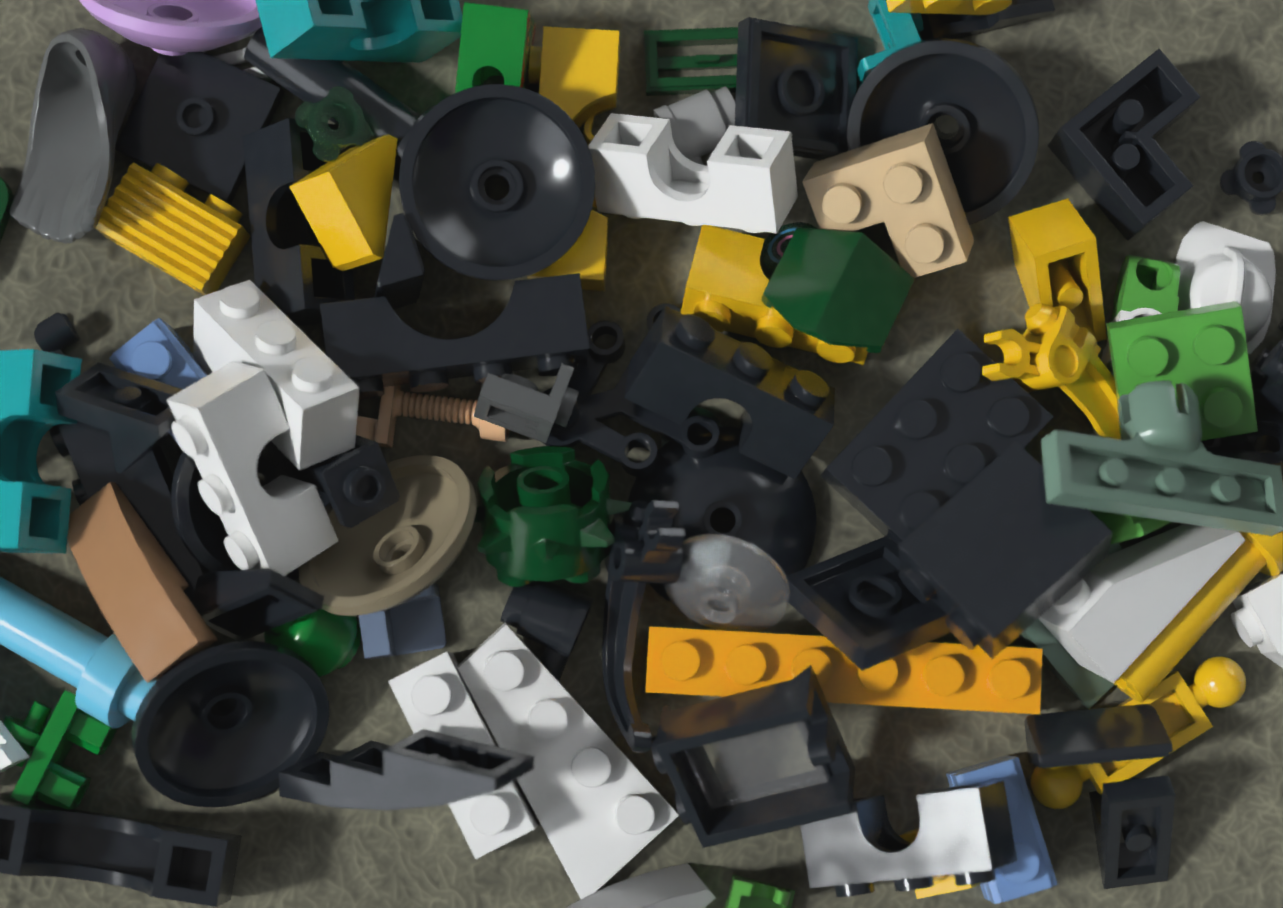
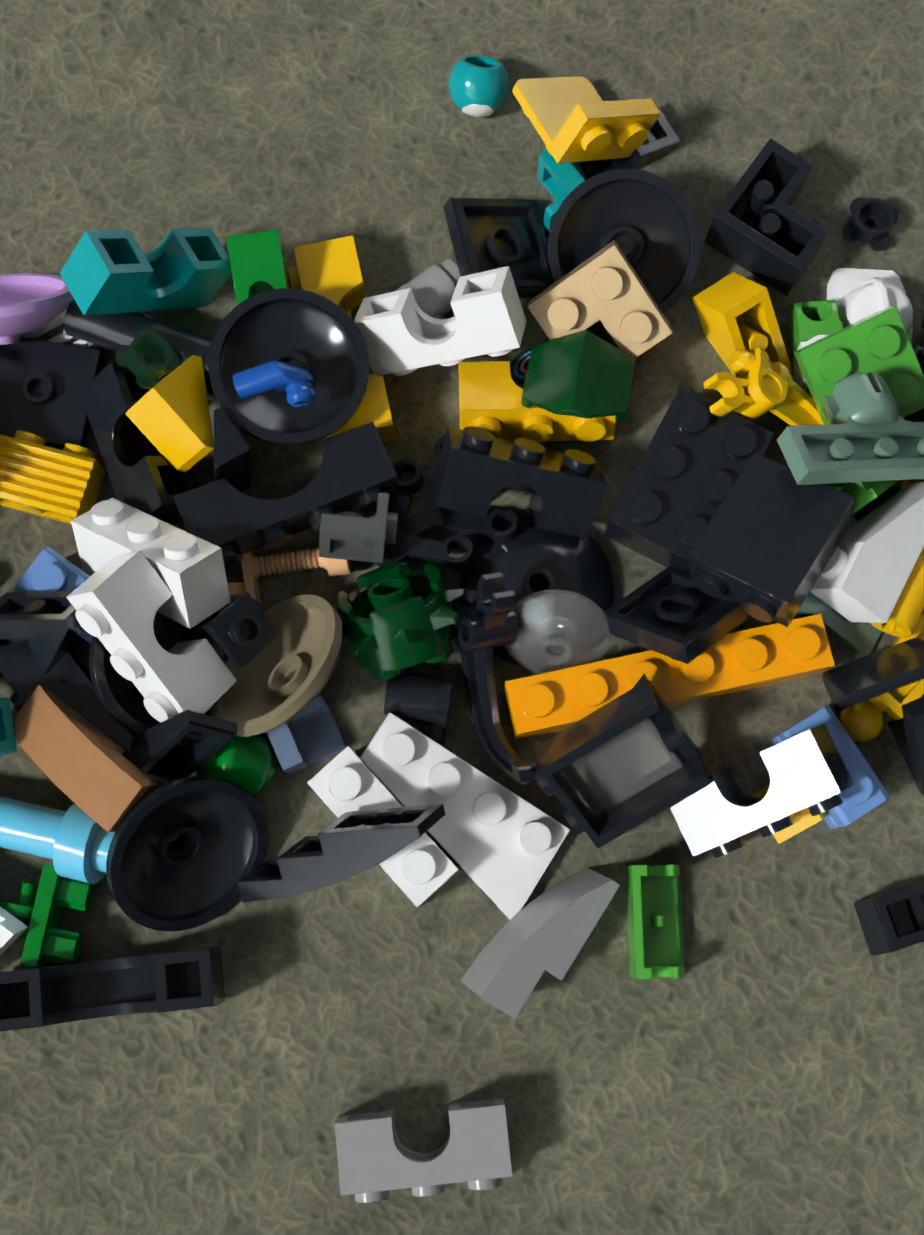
camera: 15 degrees left, 5 degrees down
(475, 195) = (278, 376): none -> blue arm
(688, 37) = (407, 233): dark green tile -> none

